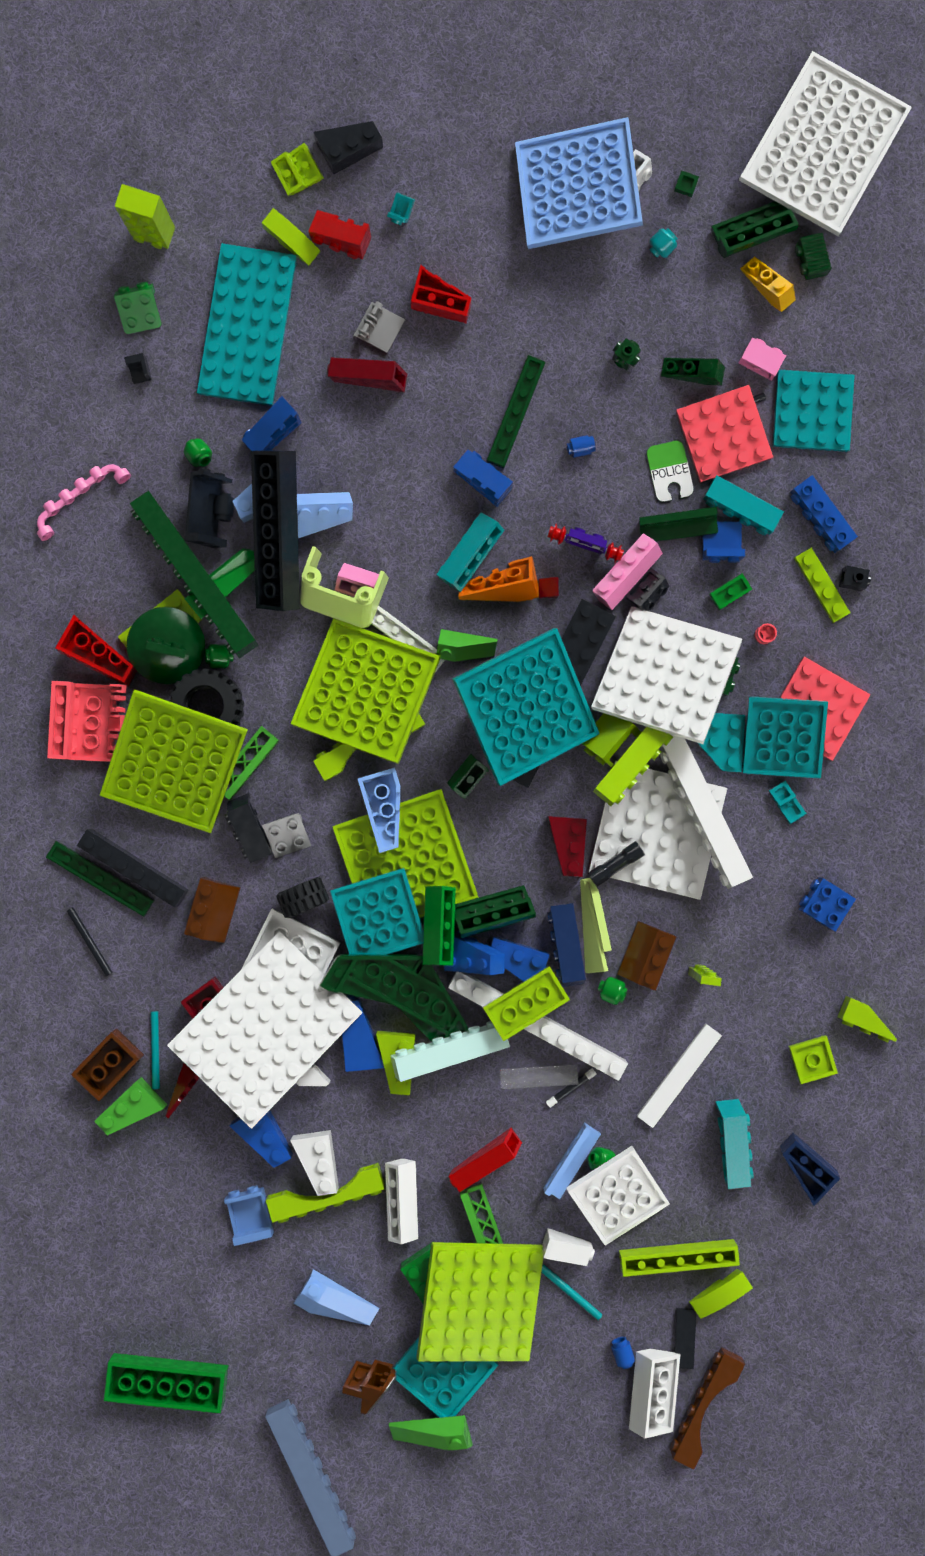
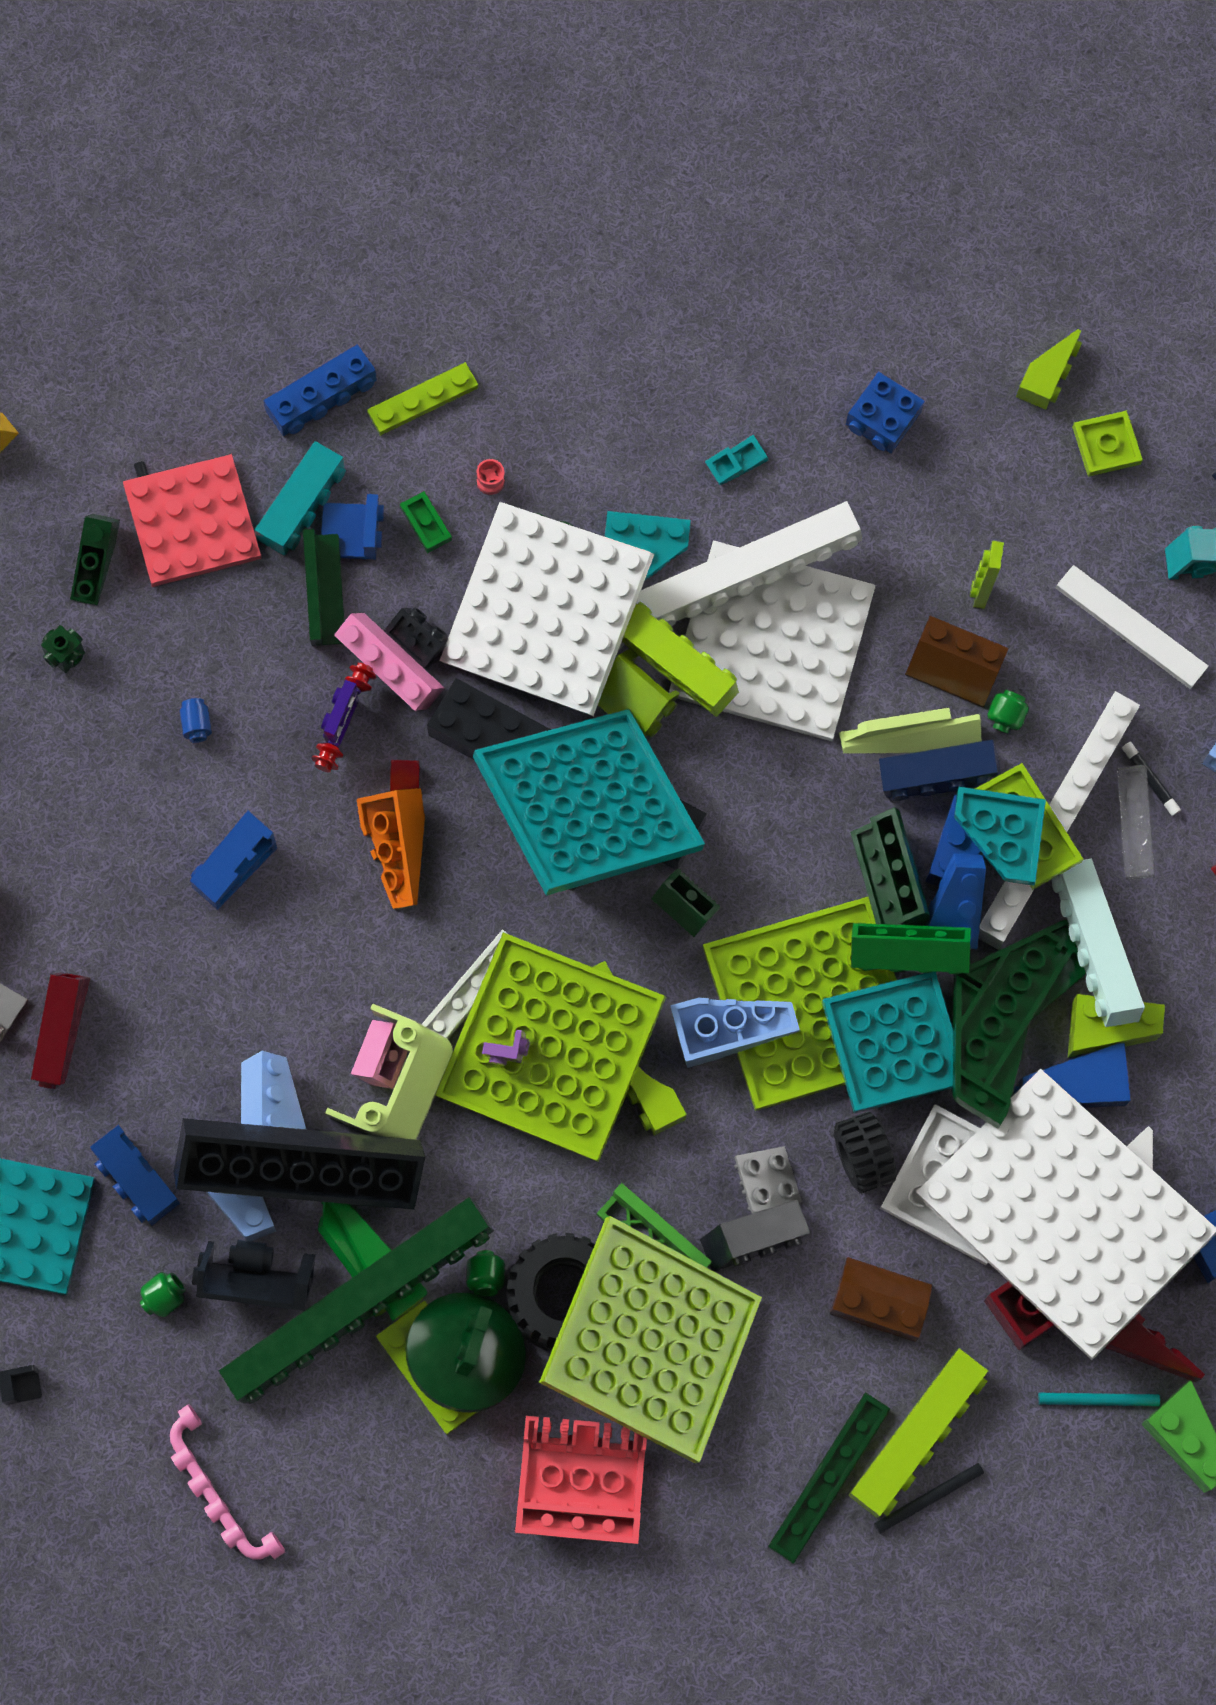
camera: 90 degrees left, 15 degrees down
(92, 651) = (470, 1469): red wedge -> none
(107, 1064) = (1122, 1469): reddish brown brick -> none
(127, 934) = (918, 1433): none -> lime brick
(132, 867) = (813, 1420): black brick -> none
(356, 658) = (501, 1054): none -> medium lavender bracket
(462, 646) = (488, 904): bright green slope -> none
(470, 552) = (345, 885): teal brick -> none
(516, 411) = (134, 813): dark green tile -> none
(520, 987) = (1004, 830): none -> teal plate
(569, 843) = (790, 762): dark red wedge -> none
(615, 864) = (811, 679): black axle -> none
(667, 466) = (233, 599): piece -> none
(762, 358) = (85, 461): bright pink brick -> none
(785, 737) = (642, 456): teal plate -> none
(813, 410) = (166, 398): teal plate -> none
(844, 700) = (601, 413): coral plate -> none
(855, 578) = (416, 353): black brick -> none

